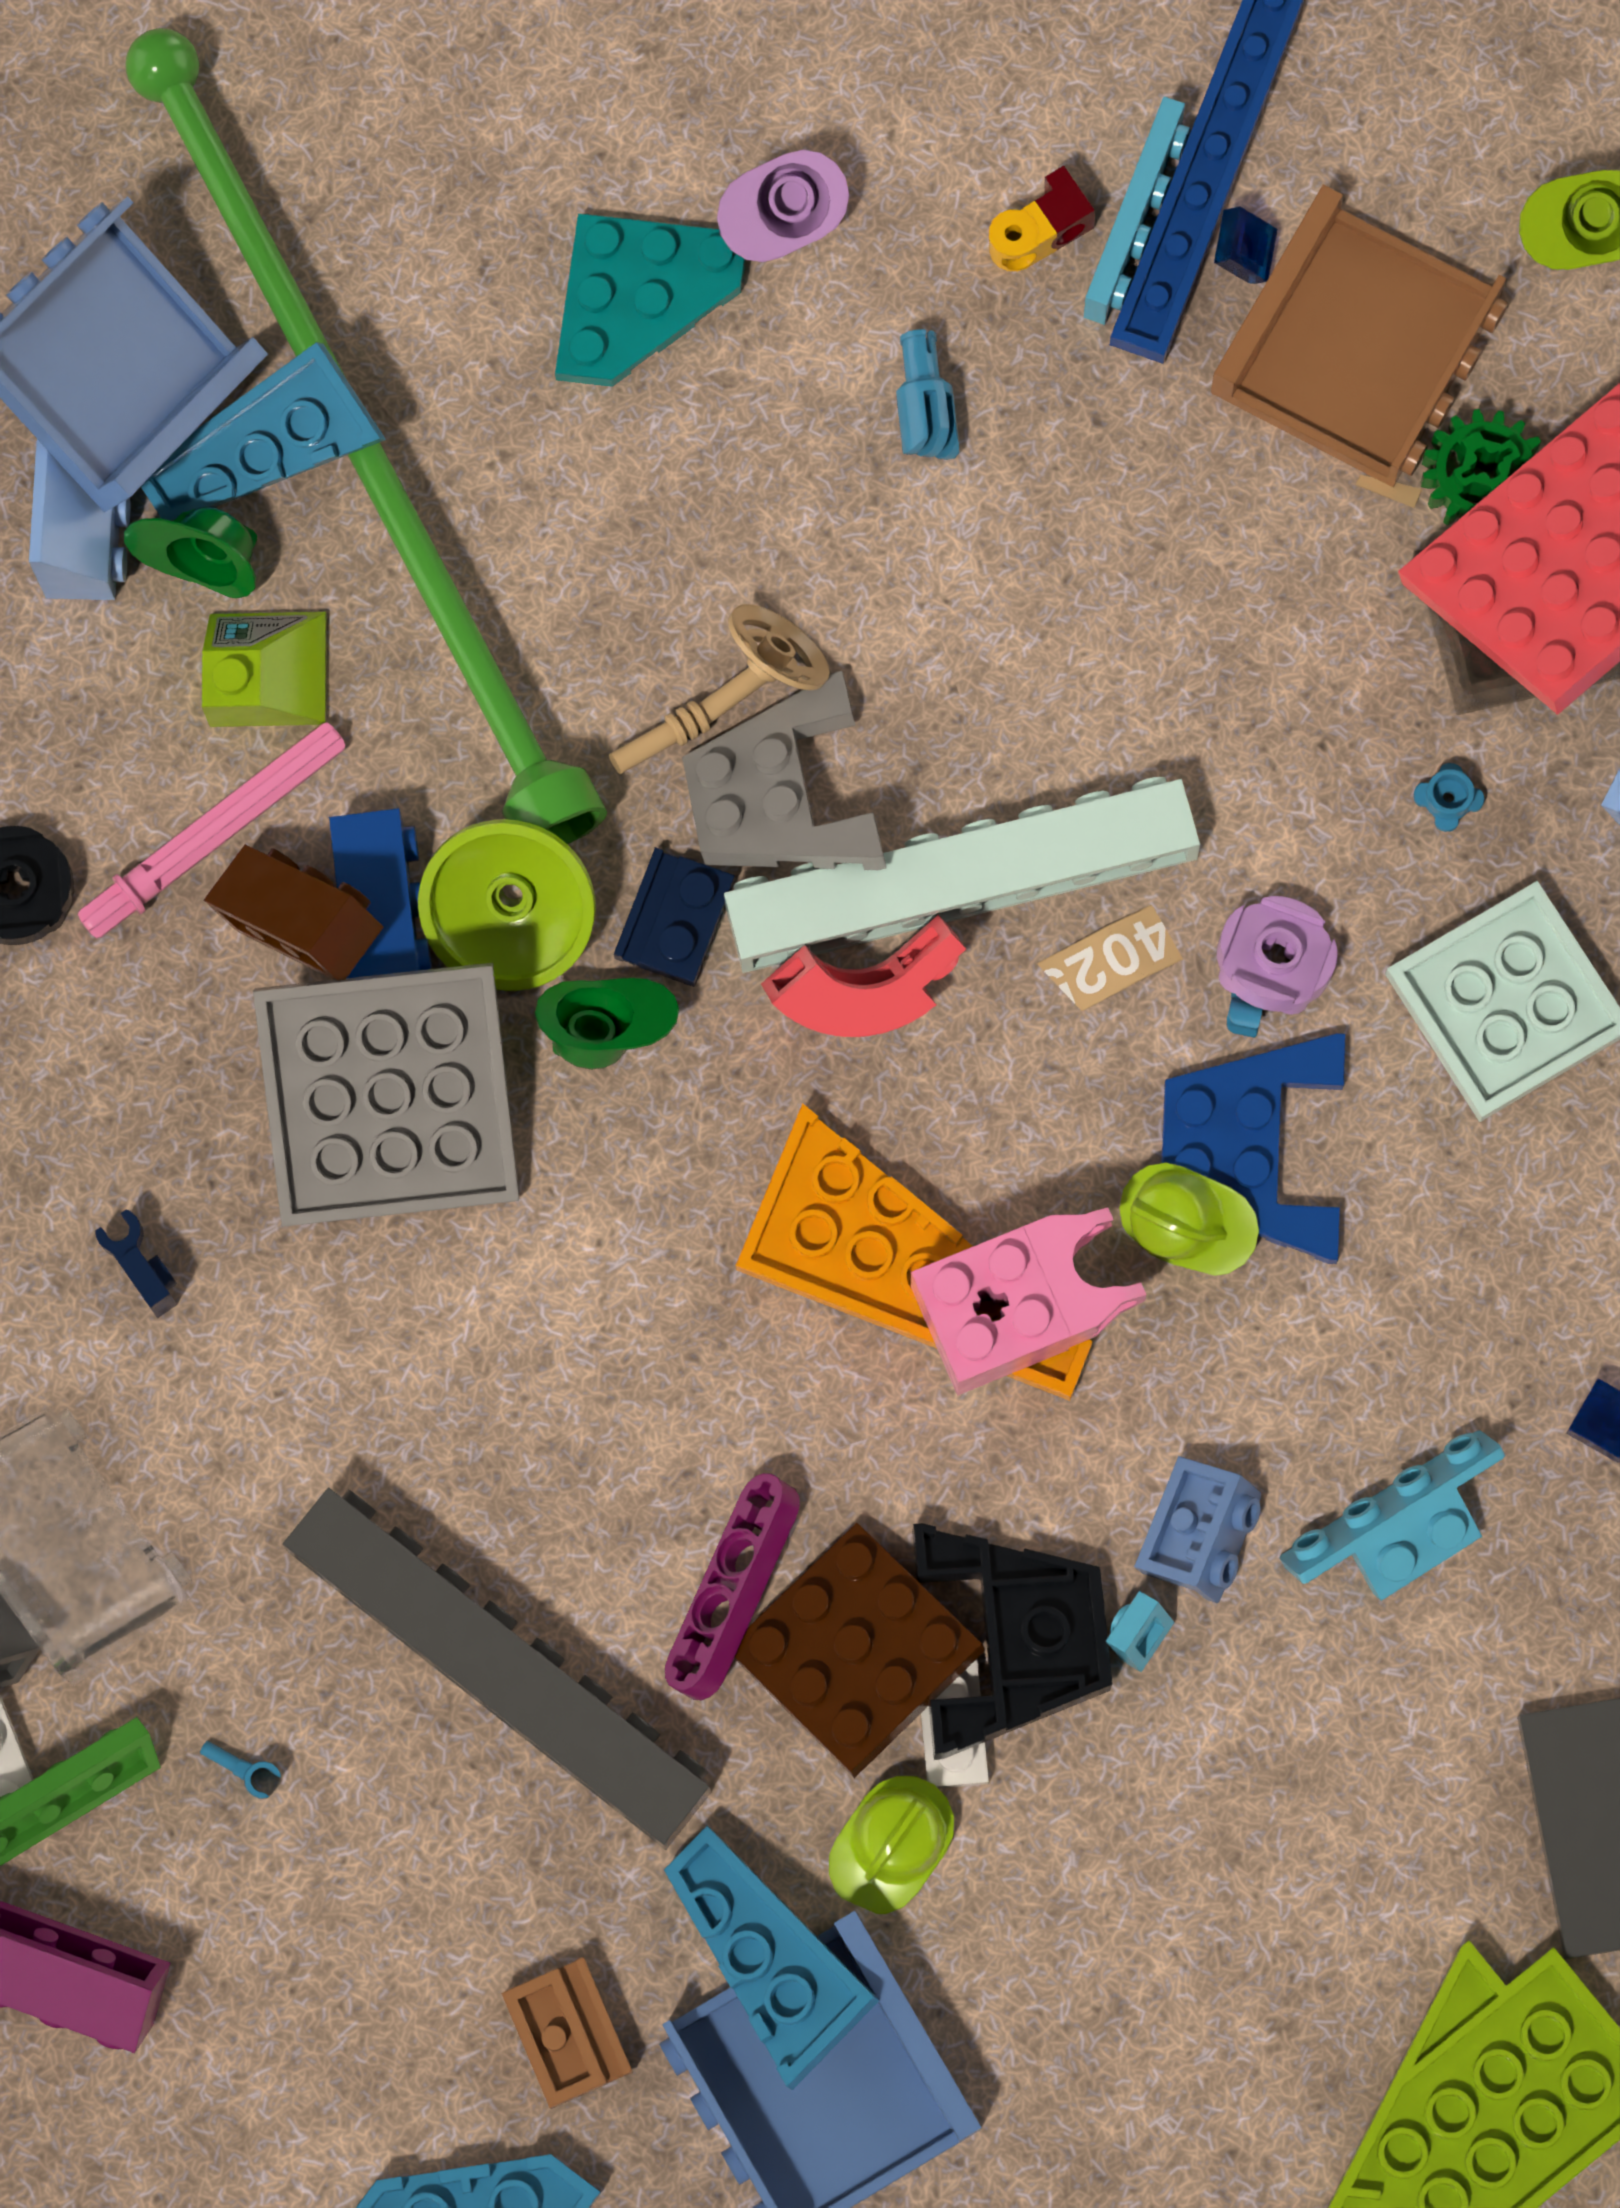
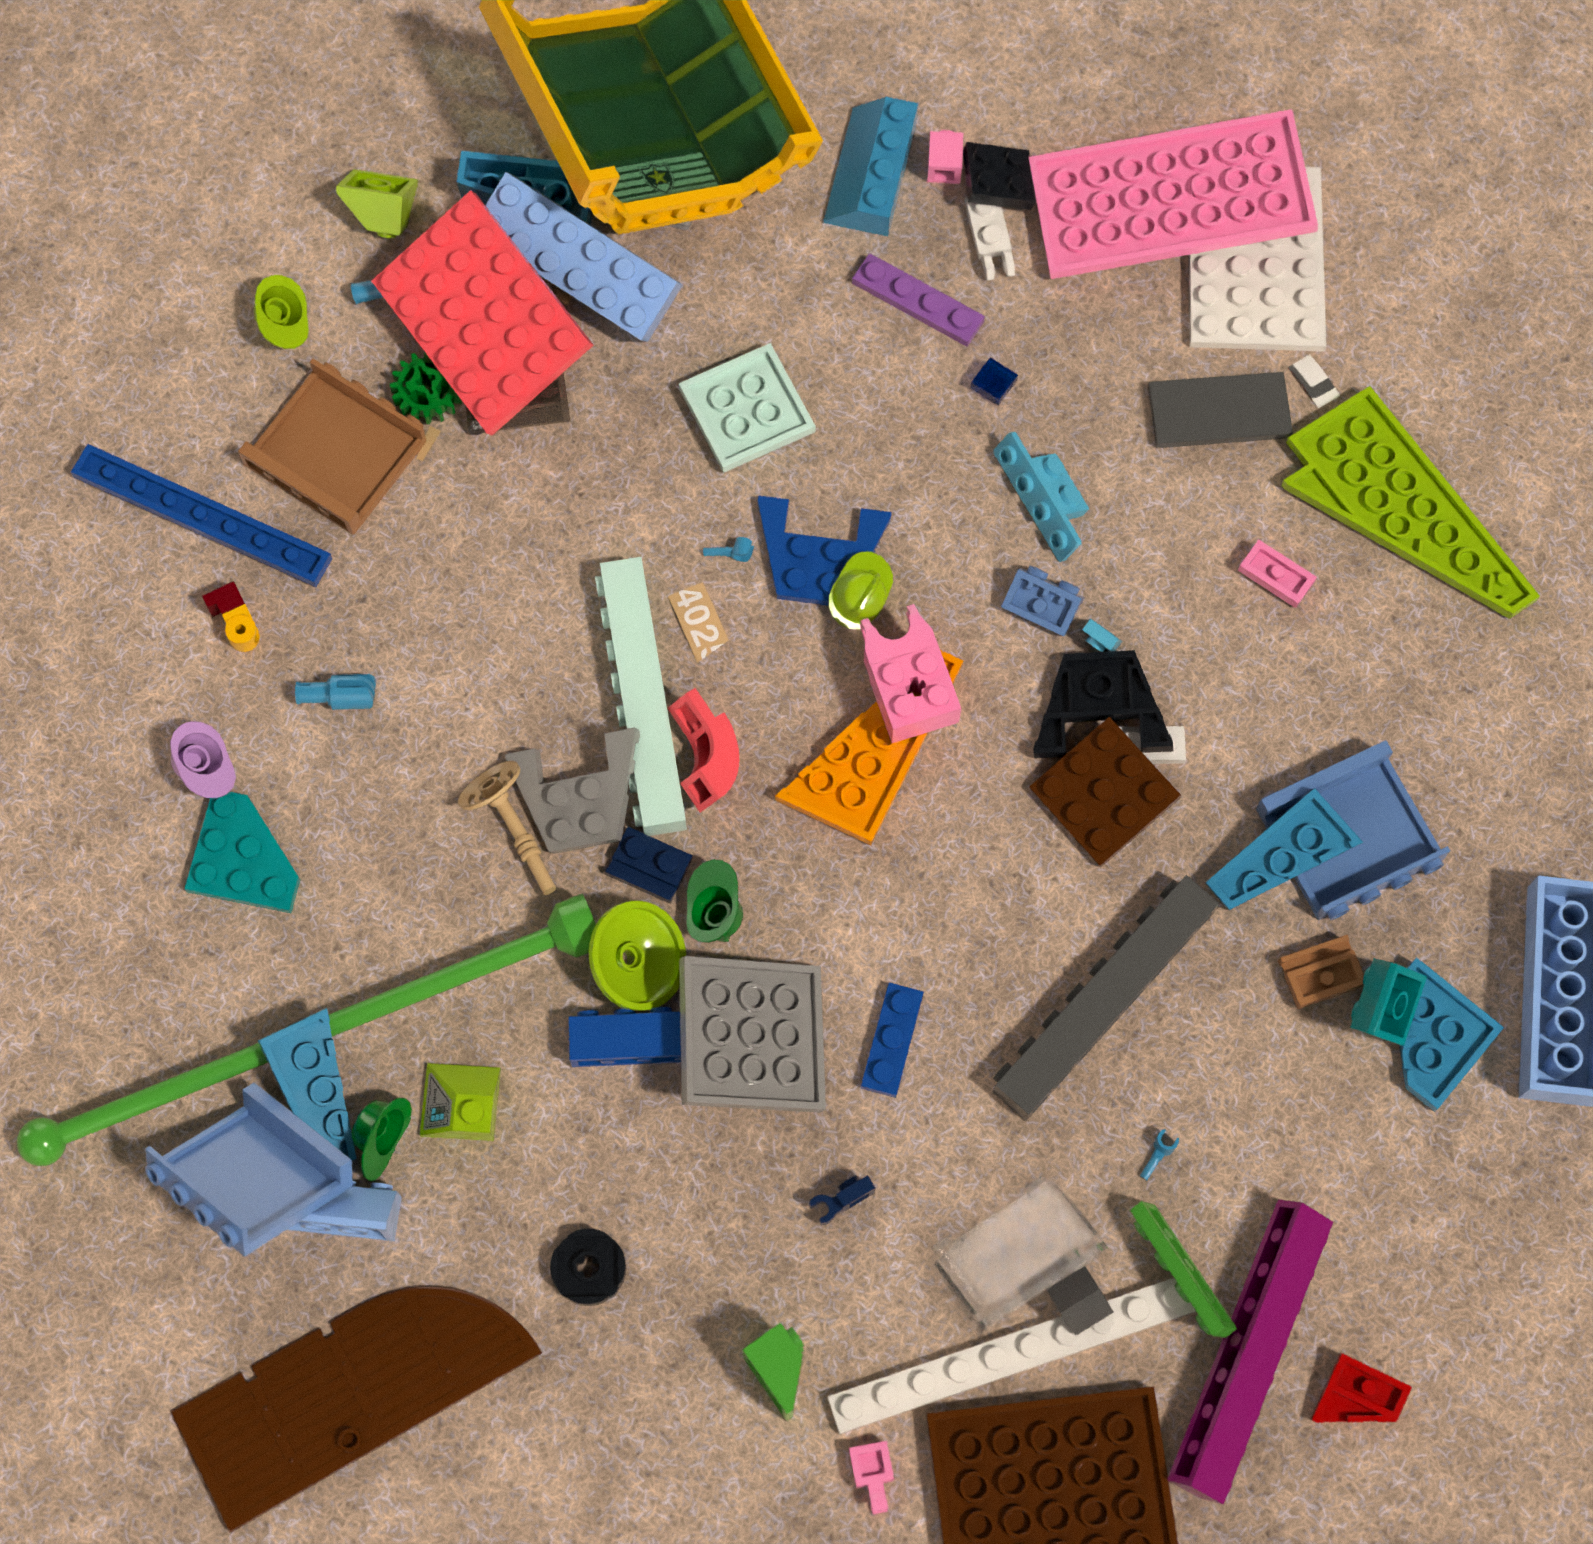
camera: 90 degrees left, 5 degrees down
(210, 830) = (565, 1141): bright pink axle -> none
(295, 911) = (631, 1081): reddish brown brick -> none
(407, 1327) = (892, 1040): none -> blue plate
(505, 2135) = (1388, 1001): none -> teal slope
(740, 1588) = (1066, 853): magenta beam -> none
(891, 1844) = (1217, 783): lime piece -> none
(1145, 190) = (224, 556): medium azure plate -> none
(1245, 245) = (266, 503): clear blue plate -> none
(1272, 985) = (718, 540): lavender plate -> none
(1290, 1936) = (1277, 573): none -> bright pink plate
(1449, 780) = (617, 419): dark azure plate -> none

